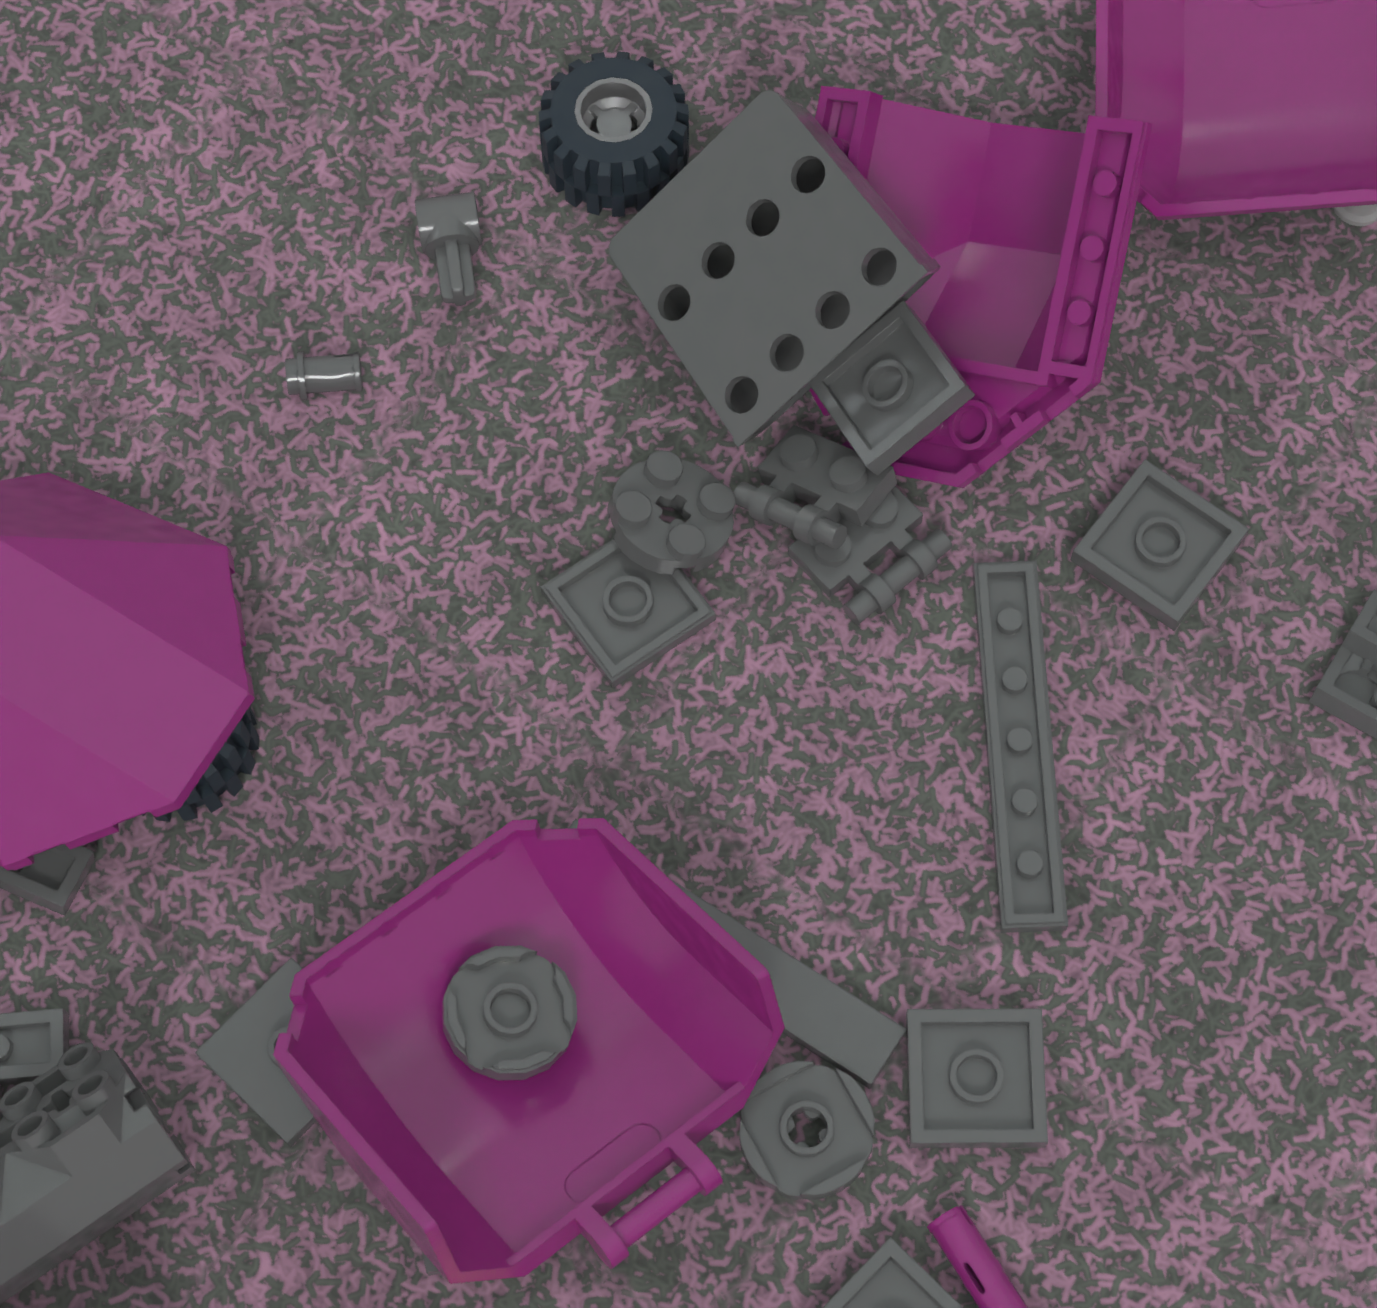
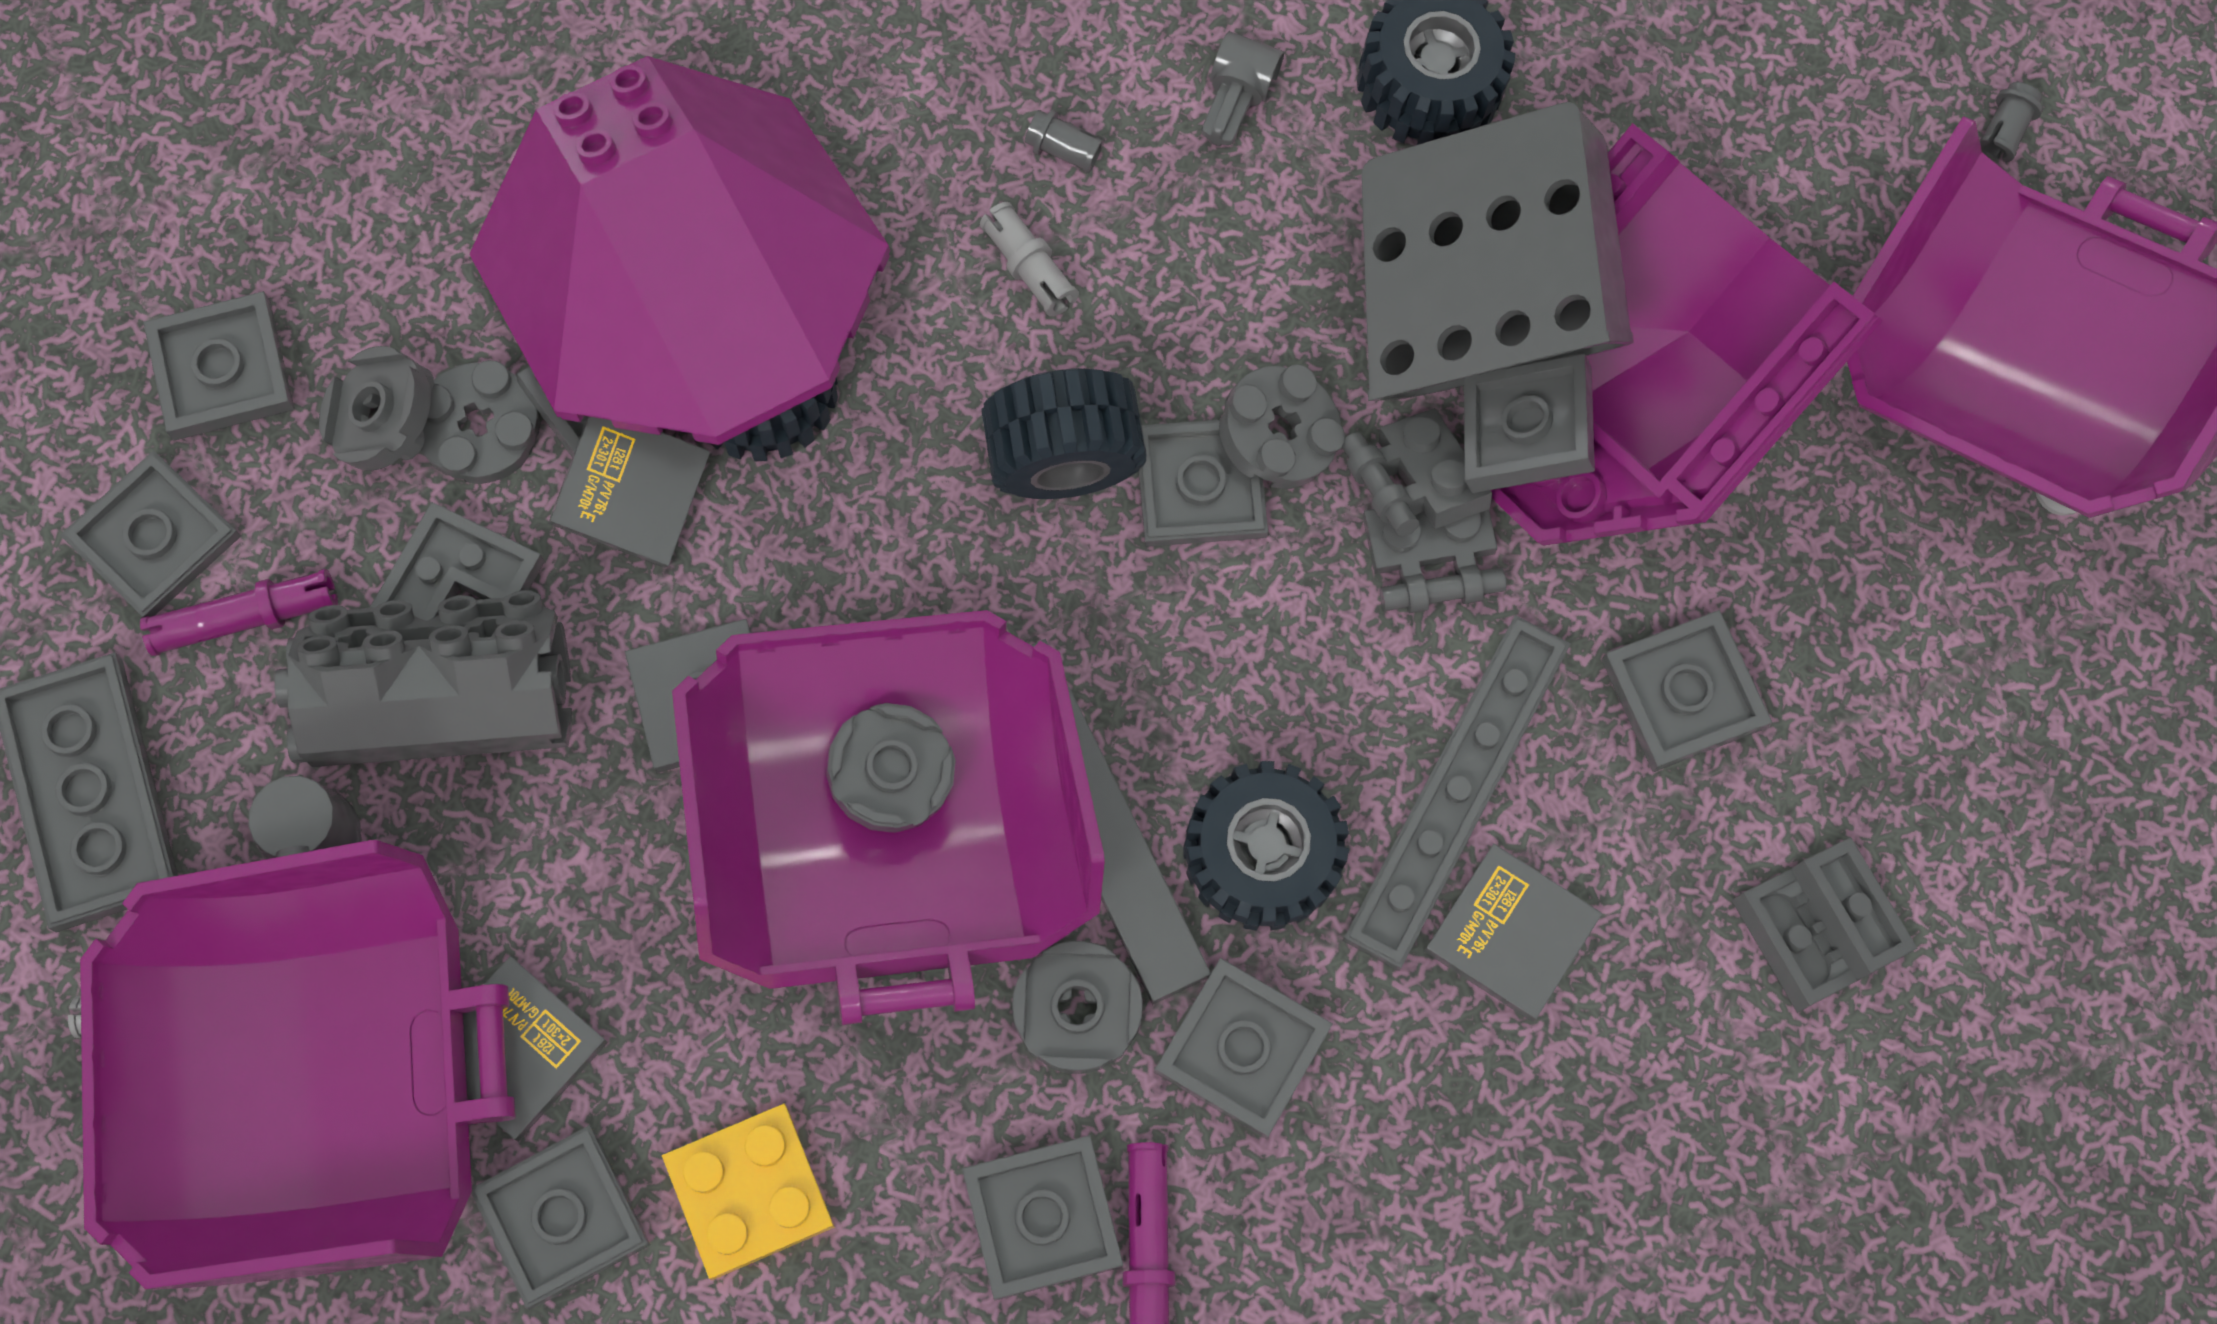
camera: 25 degrees right, 5 degrees up
(111, 902) = (629, 490): none -> dark grey tile
(355, 493) = (1029, 259): none -> light grey pin
(486, 625) = (1063, 433): none -> black wheel
(886, 887) = (1265, 846): none -> black wheel
(1143, 838) = (1513, 932): none -> dark grey tile

